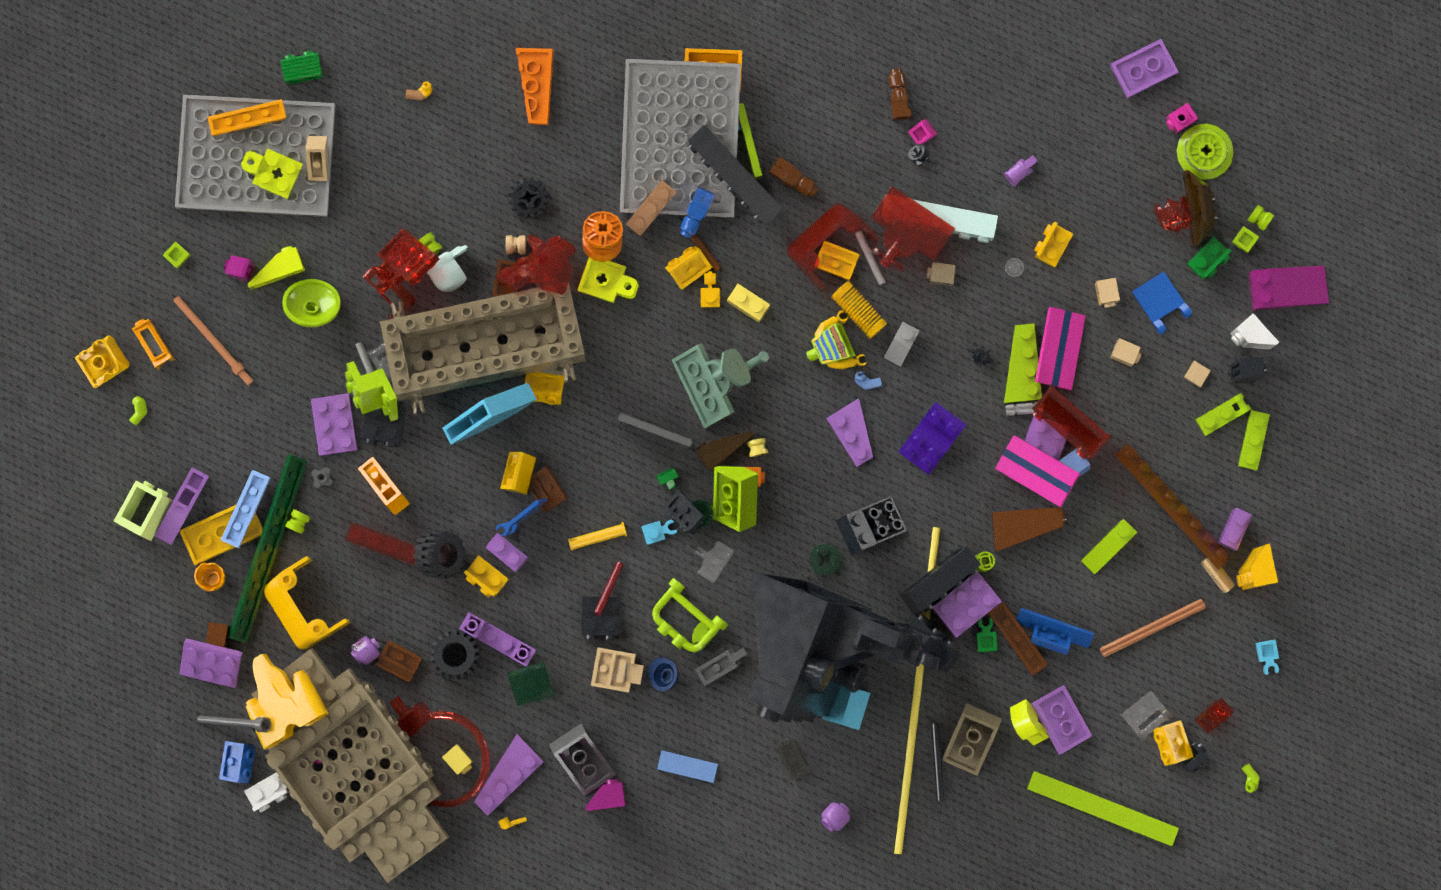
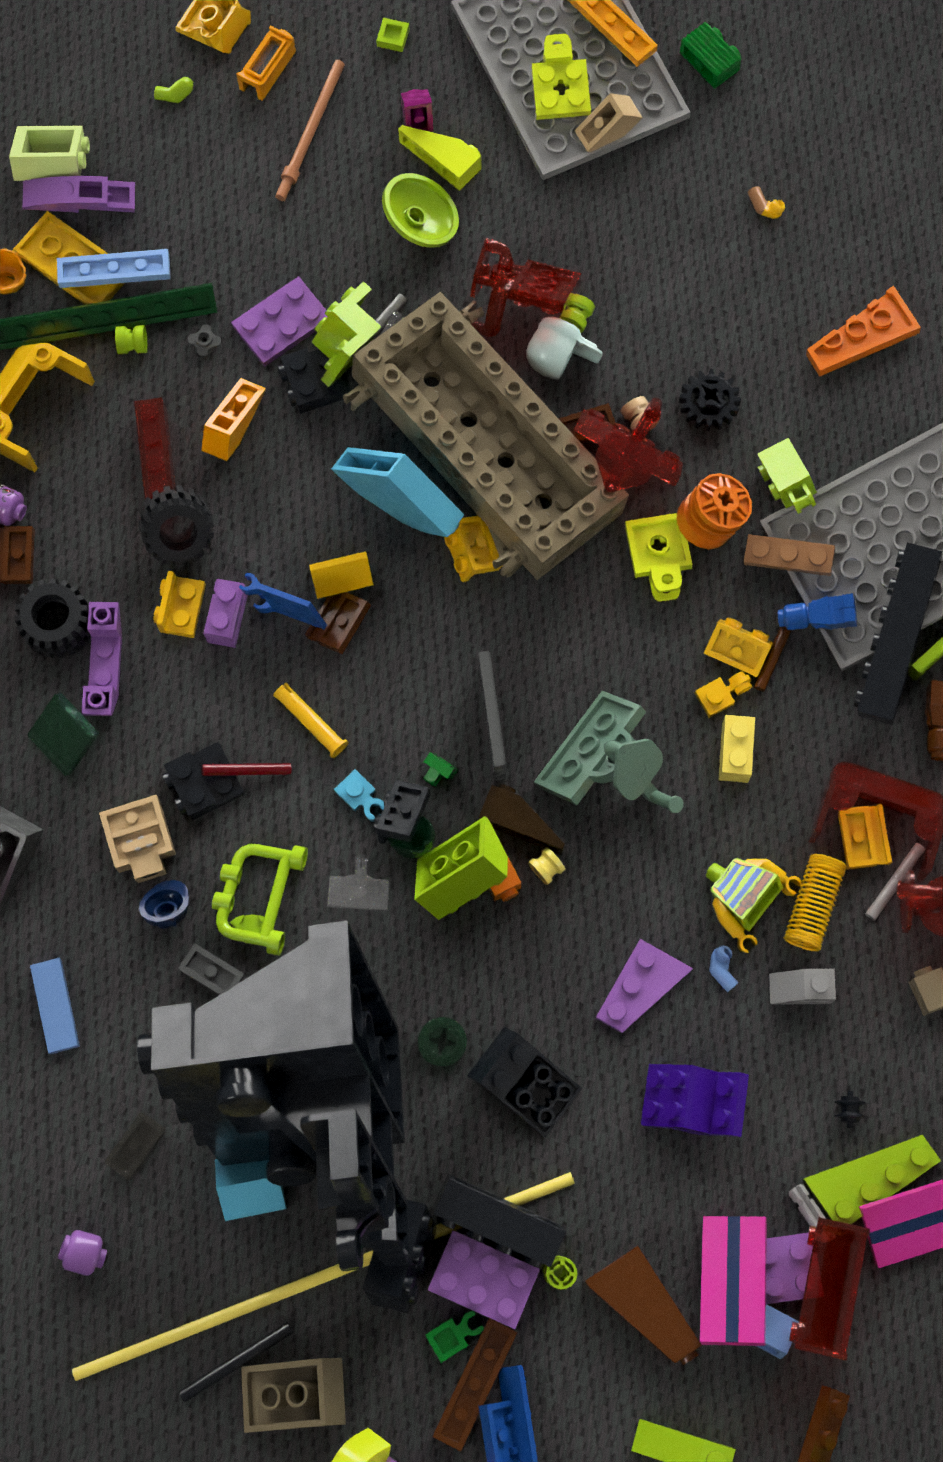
camera: 65 degrees right, 10 degrees down
(604, 181) = (788, 476): none -> brick

